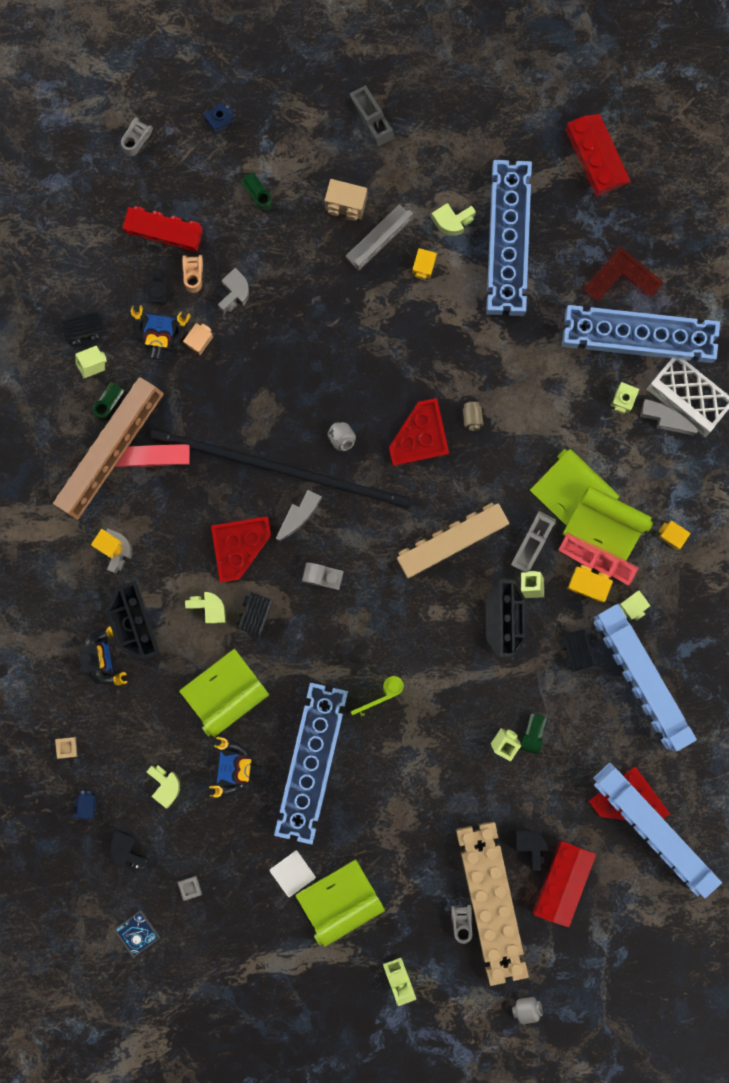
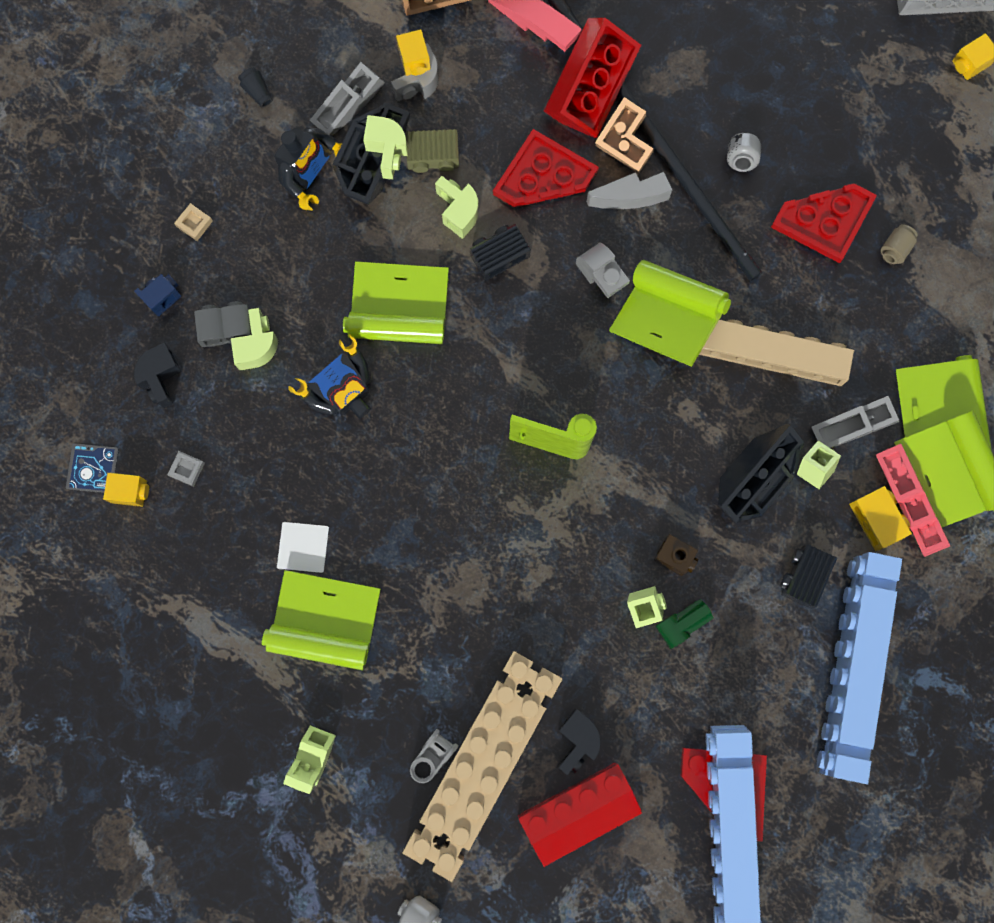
camera: 45 degrees right, 5 degrees down
(27, 637) = (255, 86): none -> black cone
(88, 600) = (347, 99): none -> light grey slope
(137, 791) = (219, 325): none -> dark grey brick
(139, 608) = (386, 137): none -> yellowish green brick
(164, 588) = (432, 150): none -> olive brick
(169, 929) = (126, 489): none -> yellow brick
(219, 467) = (592, 76): none -> red slope
(267, 491) = (618, 136): none -> light nougat brick
(311, 763) = (423, 447): light blue brick -> none
(380, 565) = (671, 308): none -> lime door
(498, 701) = (676, 556): none -> dark brown brick
(634, 606) = (914, 583): yellowish green brick -> none

